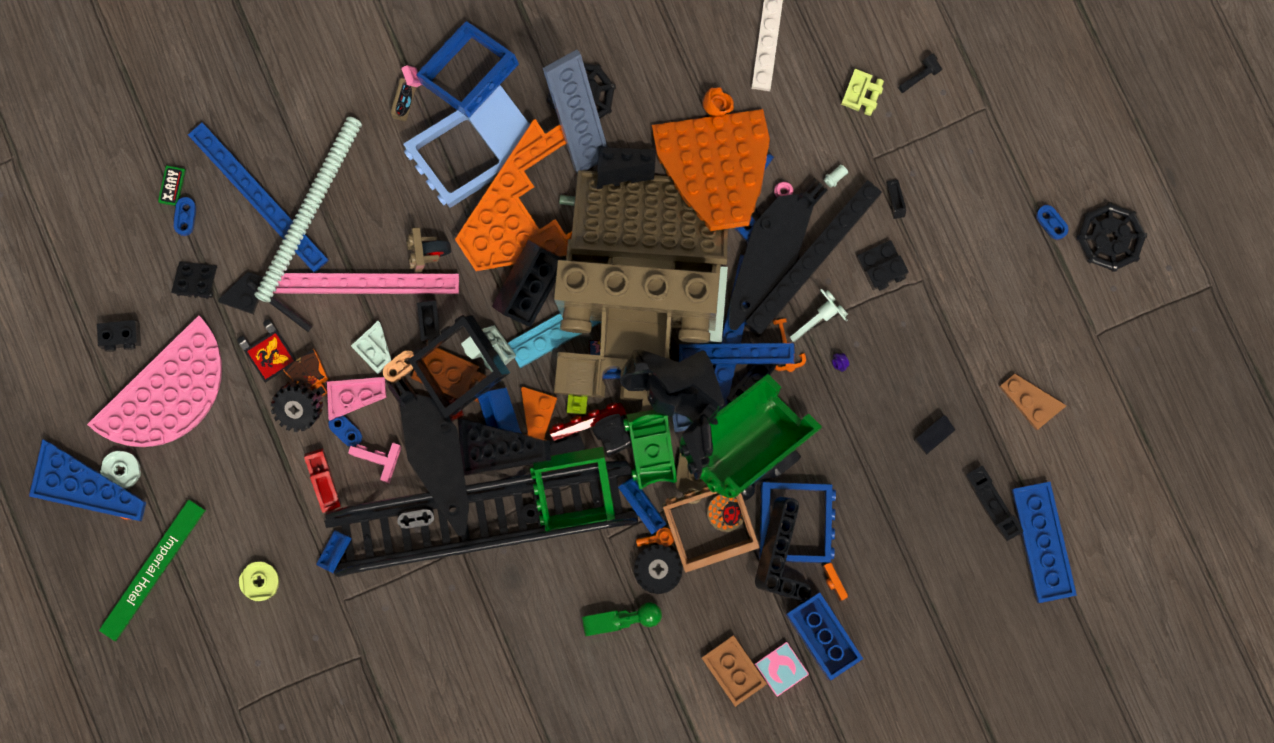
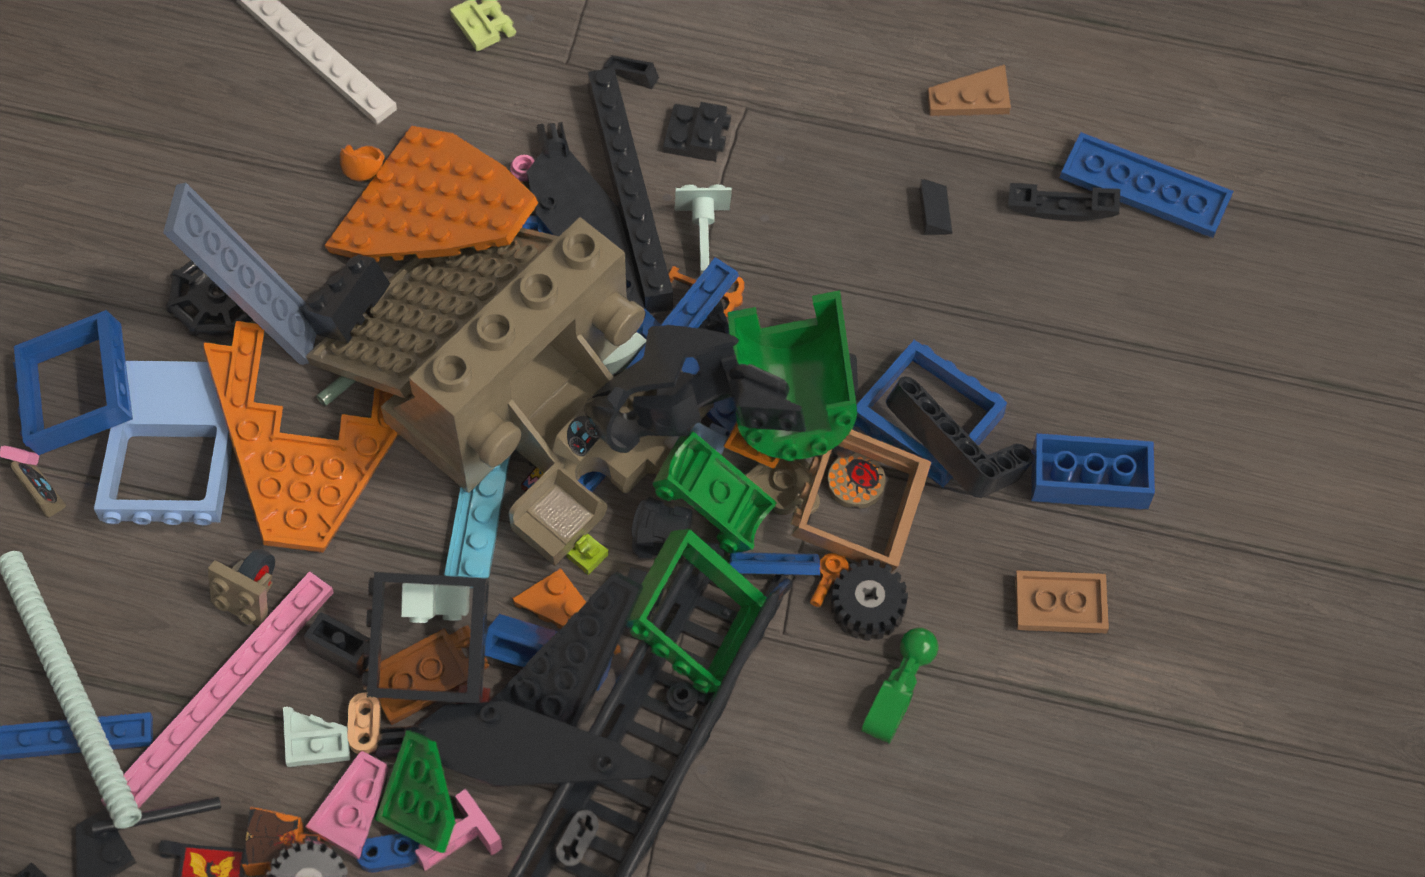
camera: 50 degrees left, 20 degrees down
(376, 425) = (418, 796): none -> green plate
(528, 284) = (393, 496): black slope -> none
(580, 423) = (621, 542): red plate -> none
(617, 357) = (576, 438): none -> slope
(781, 669) = (1098, 548): medium azure tile -> none
(832, 178) = (554, 111): light aqua pin -> none
(834, 582) = (1032, 419): orange plate -> none
(840, 362) = (773, 242): dark purple plate -> none

